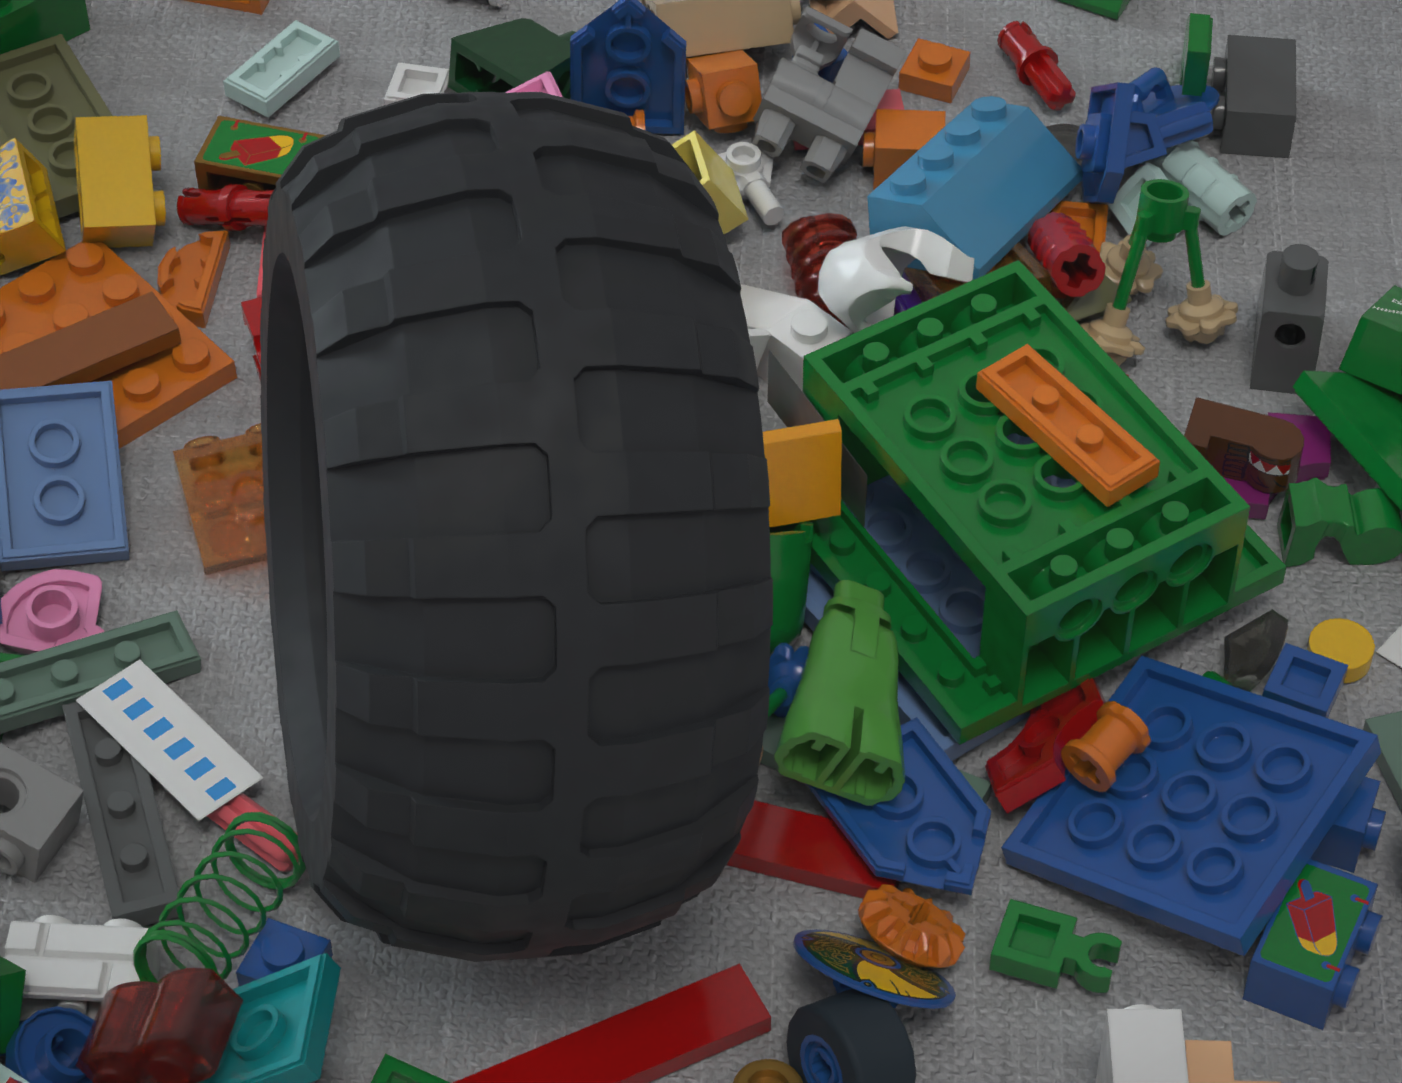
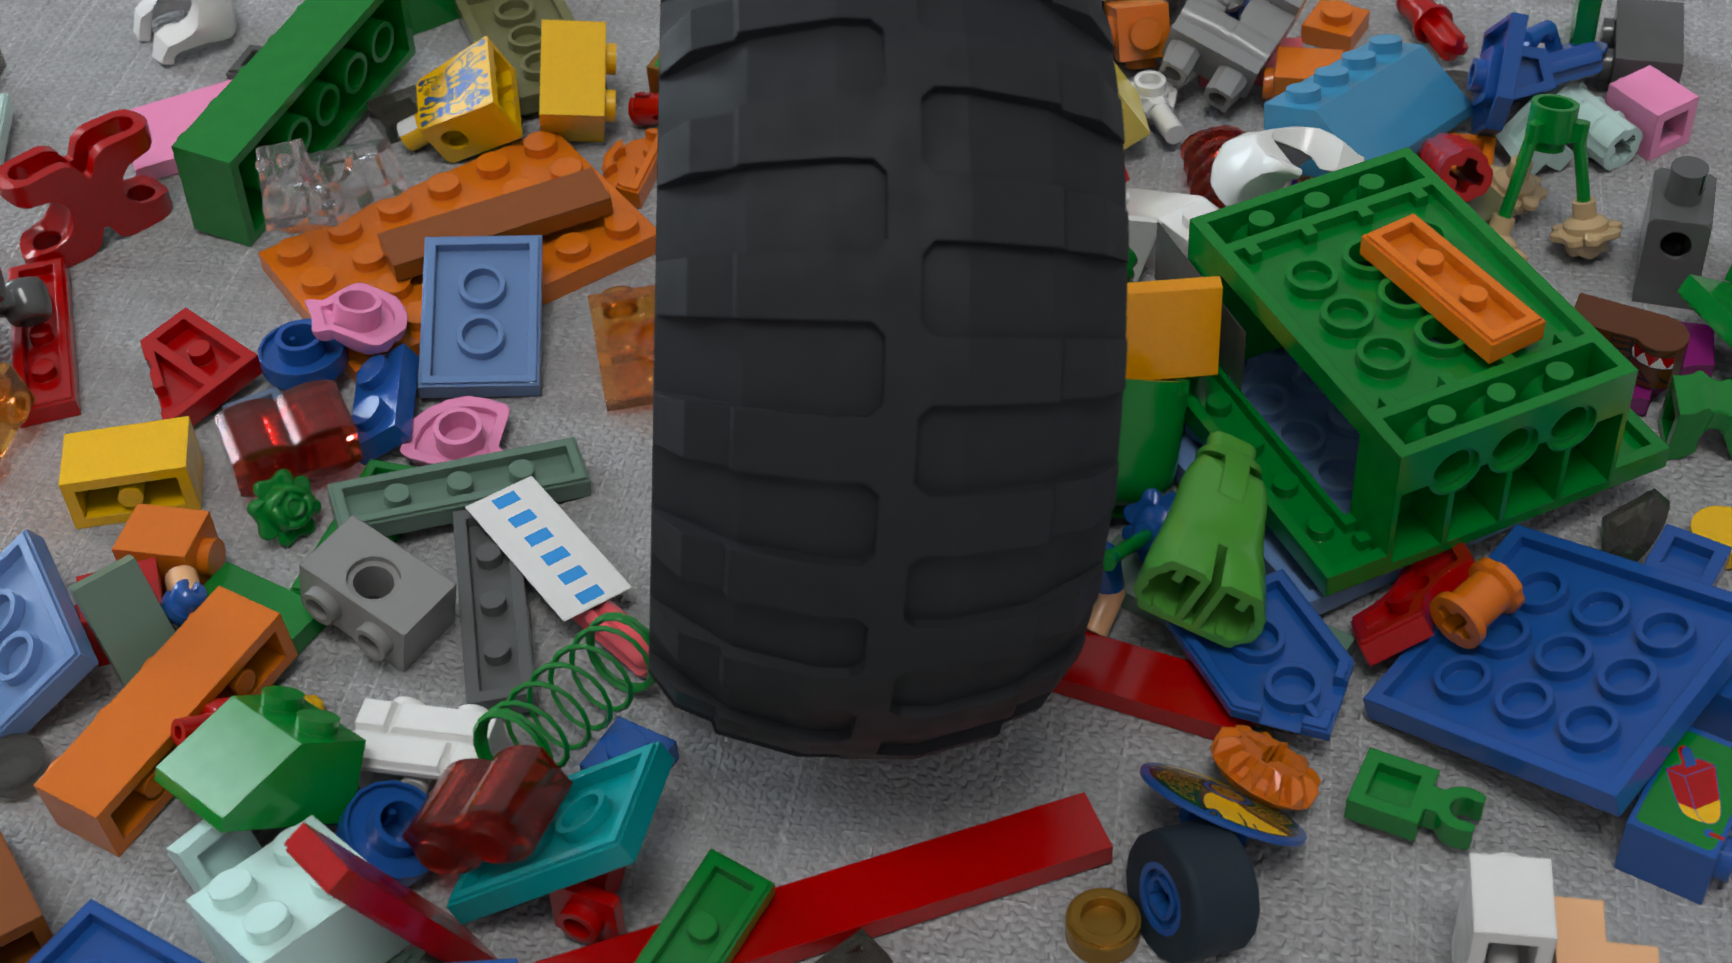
camera: 10 degrees right, 5 degrees down
(1268, 166) = (1656, 107): none -> bright pink brick

